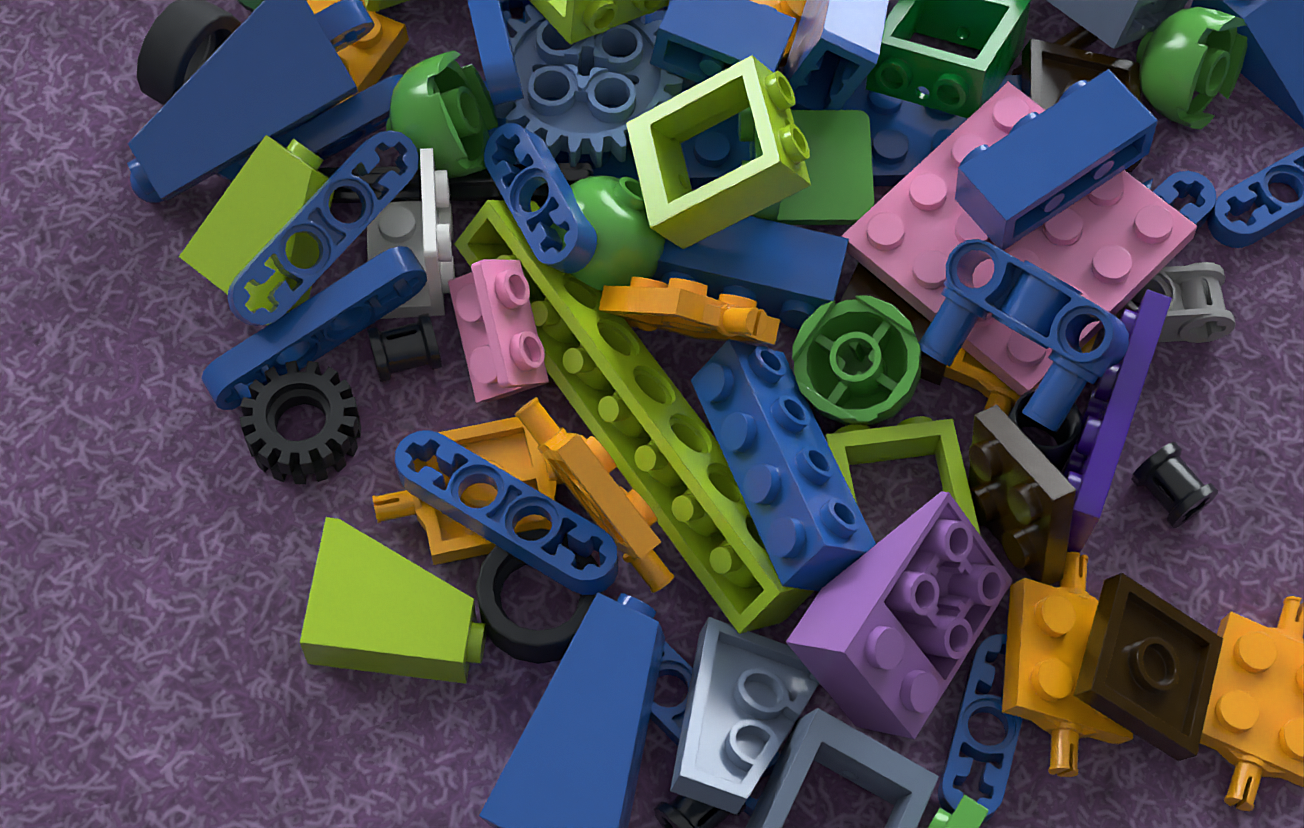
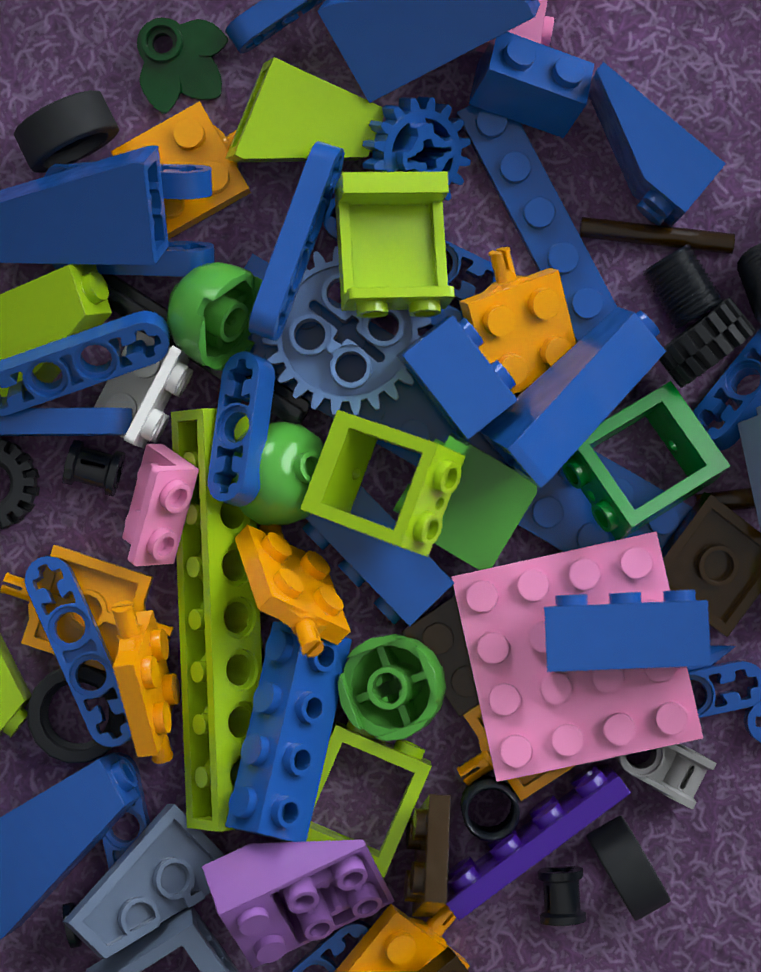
camera: 35 degrees right, 25 degrees up
(1035, 307) = (523, 746): blue piece -> none
(1220, 404) = (628, 868): none -> black tyre

